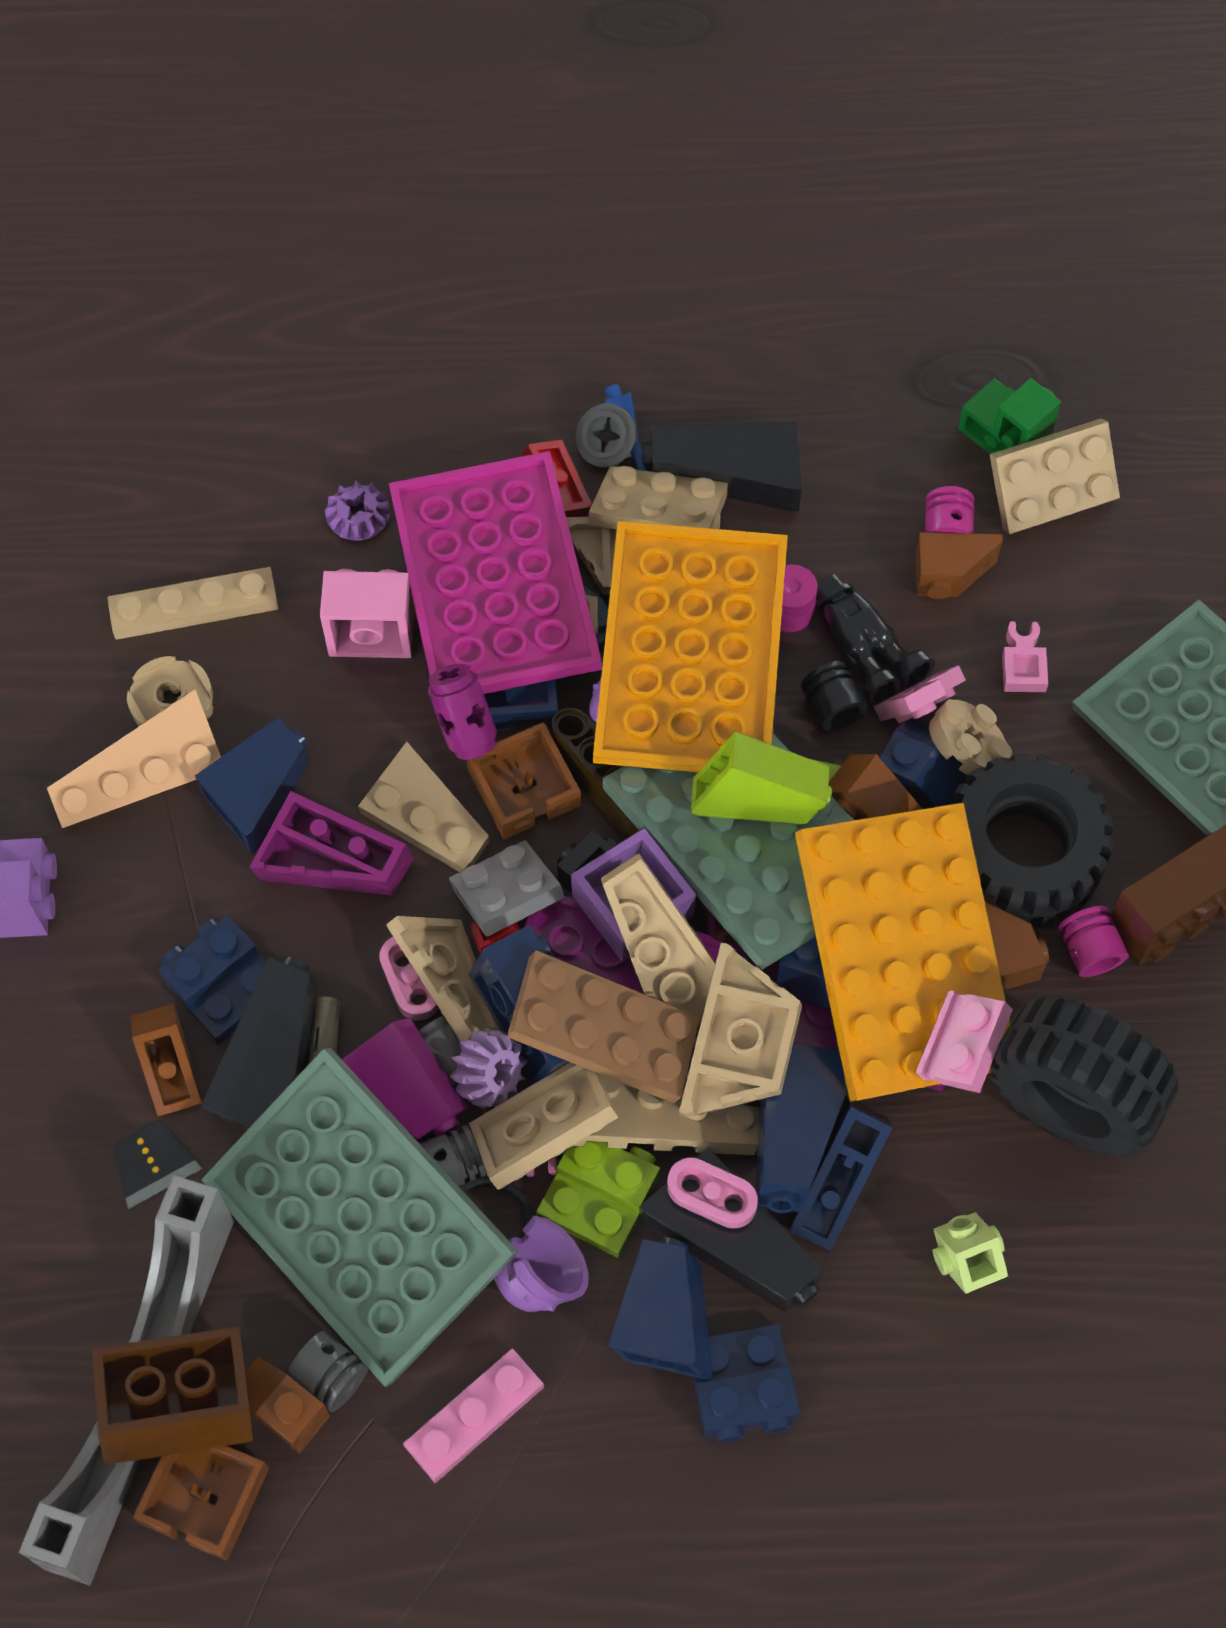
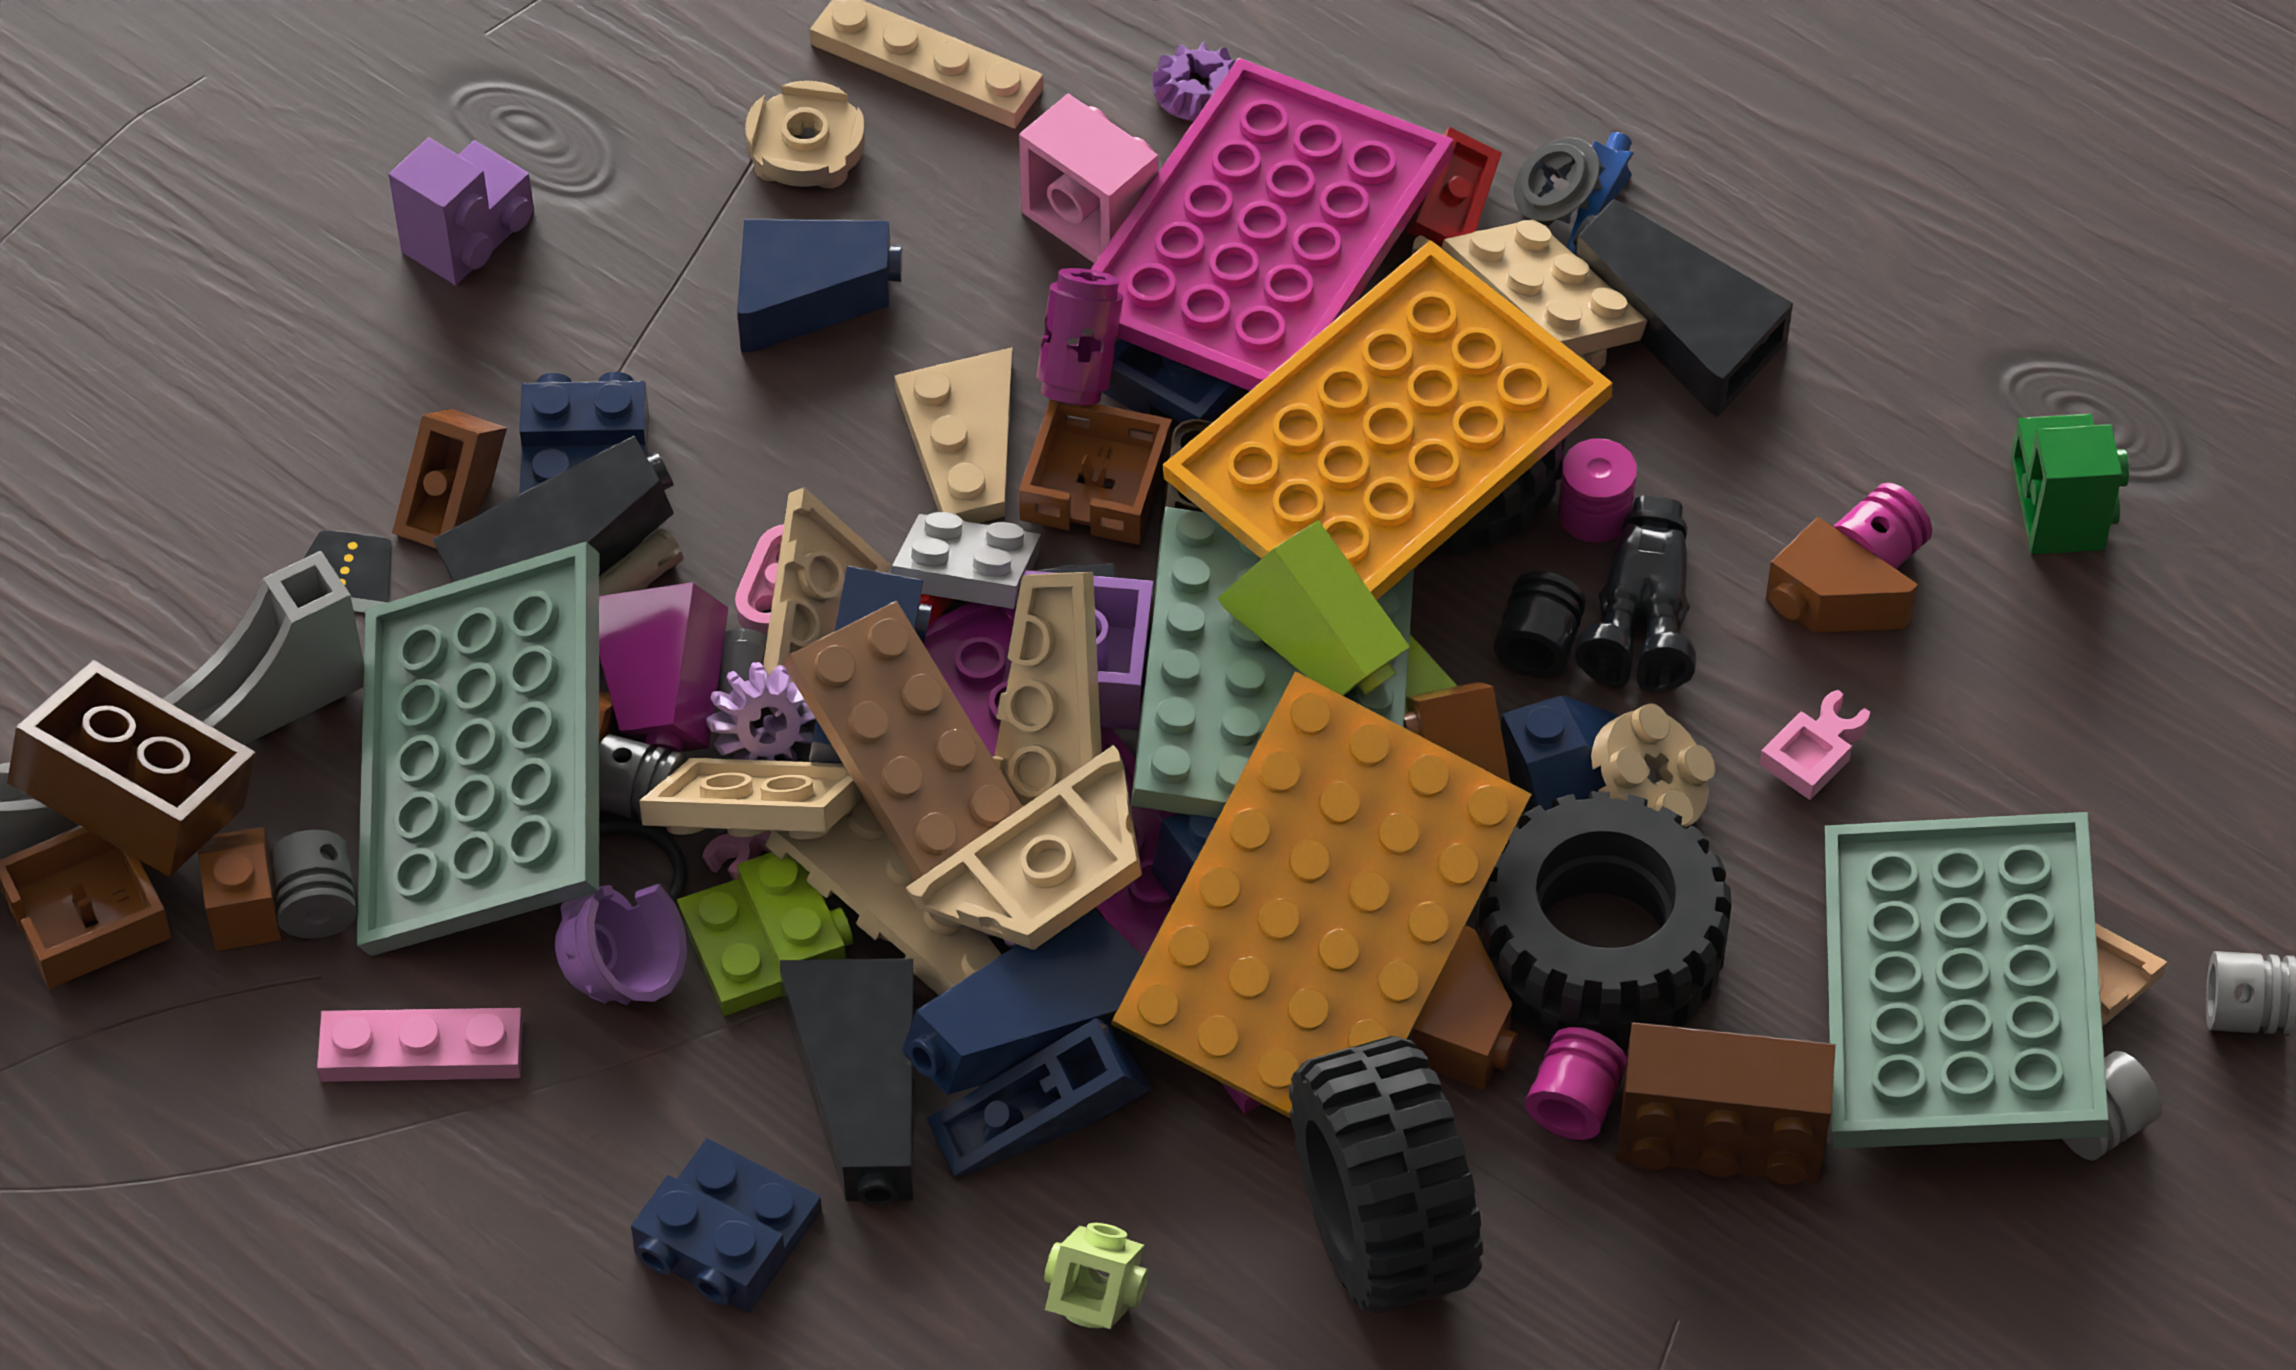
camera: 40 degrees right, 10 degrees down
(139, 765) = (703, 174): light nougat wing -> none
(329, 851) = (810, 392): magenta wedge -> none
(665, 1312) = (708, 1084): dark blue slope -> none
(714, 1190) = (865, 1000): bright pink plate -> none
(921, 697) = (1624, 682): bright pink plate -> none
(964, 1041) = (1283, 1036): bright pink plate -> none
(1055, 476) = (2056, 568): tan plate -> none

